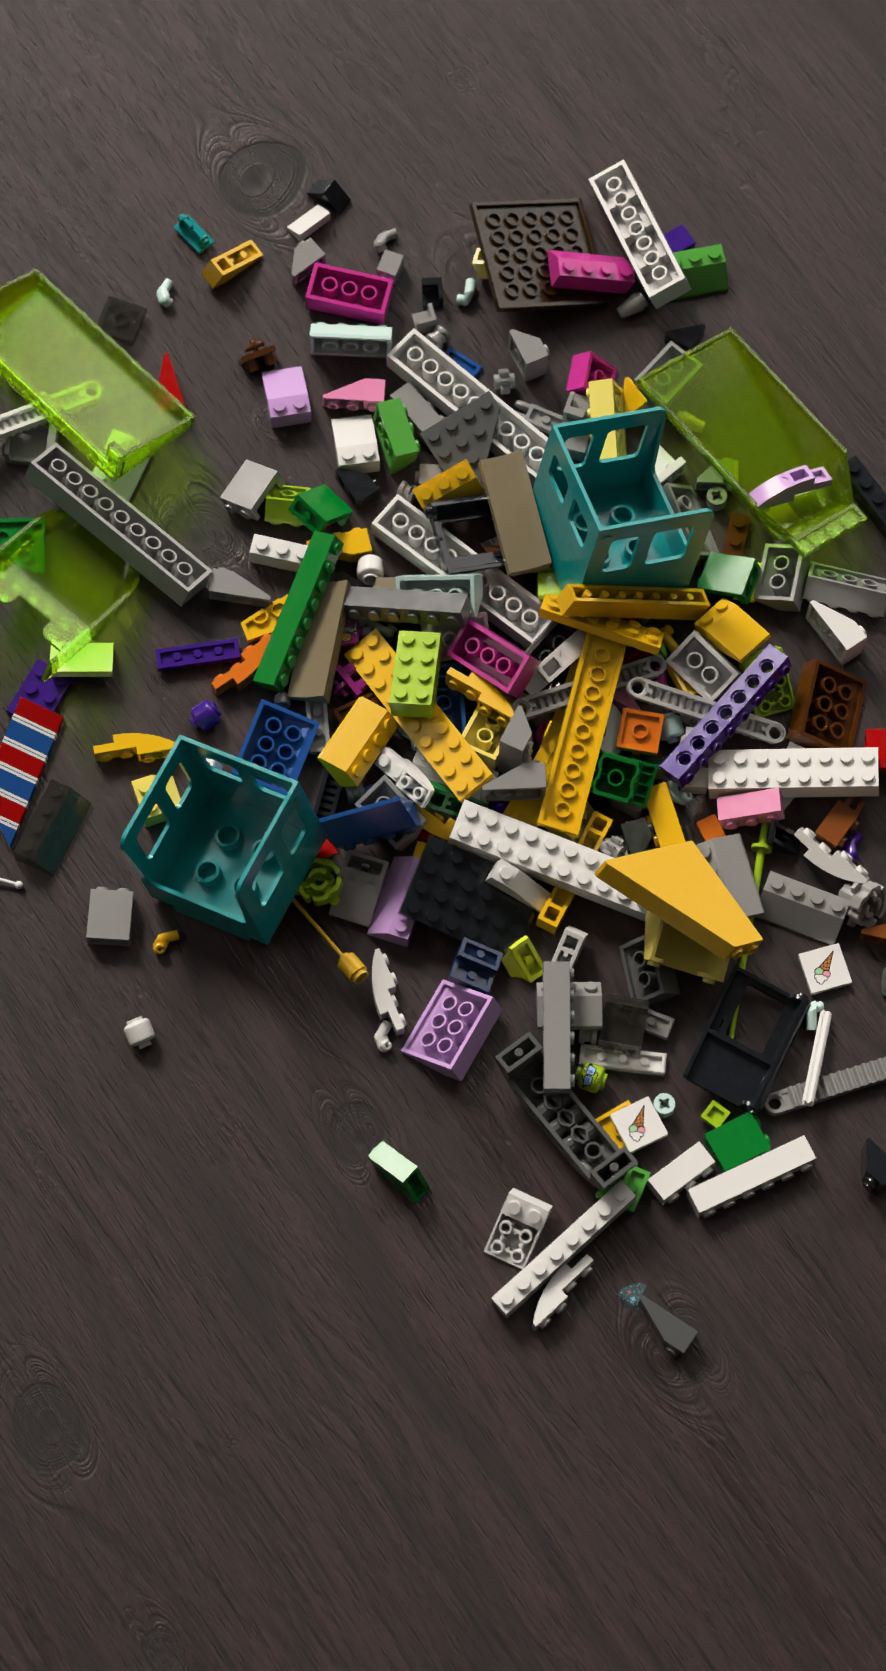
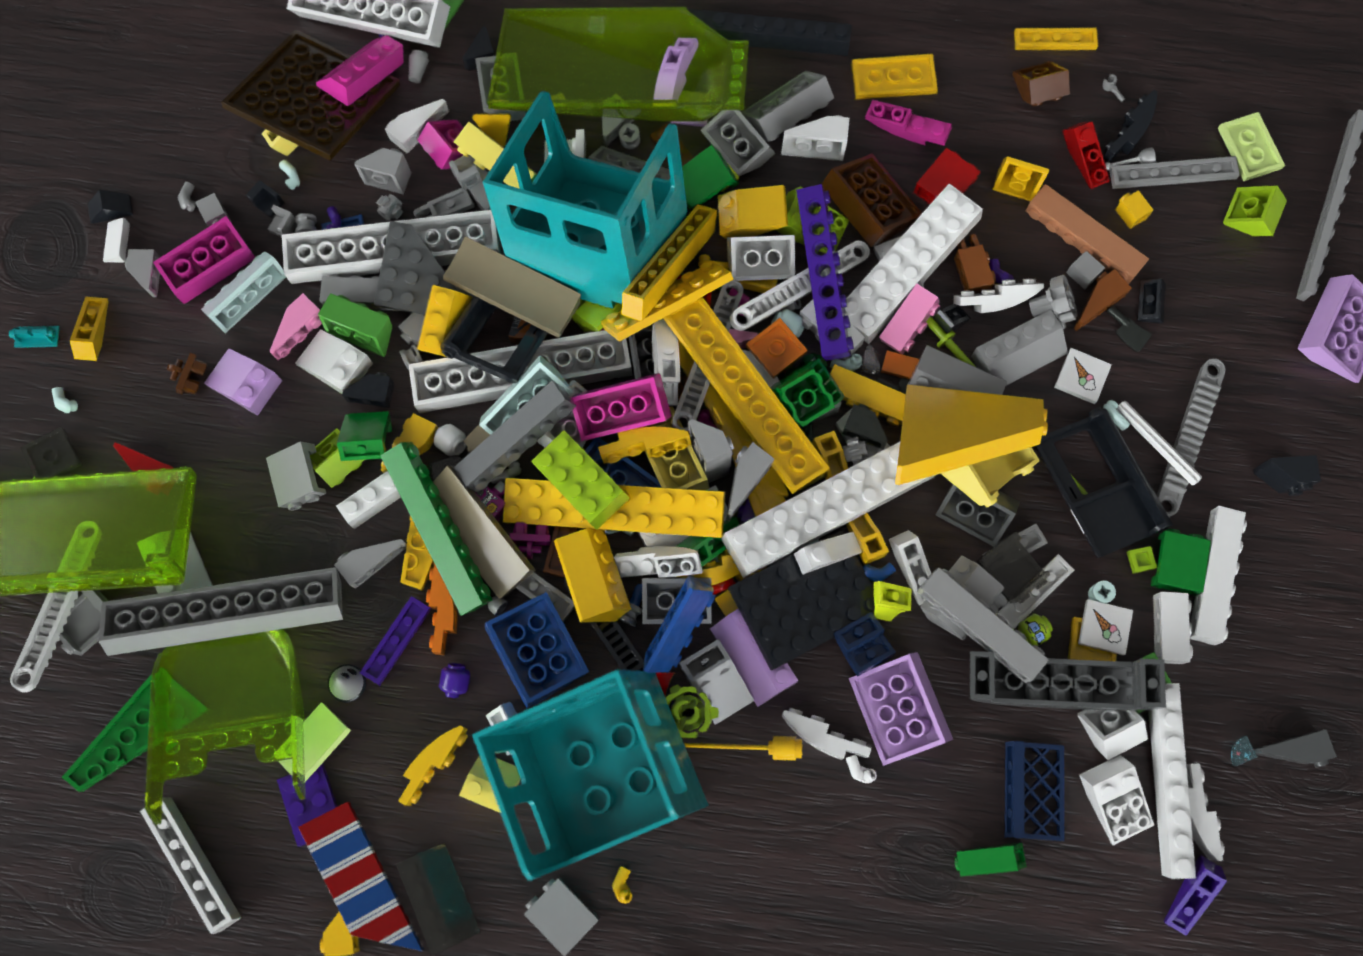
camera: 45 degrees left, 5 degrees up
(140, 648) = (346, 683): none -> light grey hat
(461, 352) = (334, 217): none -> dark purple arm
(464, 1151) = (1015, 795): none -> dark blue fence
(495, 1329) = (1195, 895): none -> dark purple slope
(537, 940) = (876, 574): none -> blue arm
(566, 1187) = (1113, 730): none -> white slope
(579, 340) = (408, 126): none -> white slope

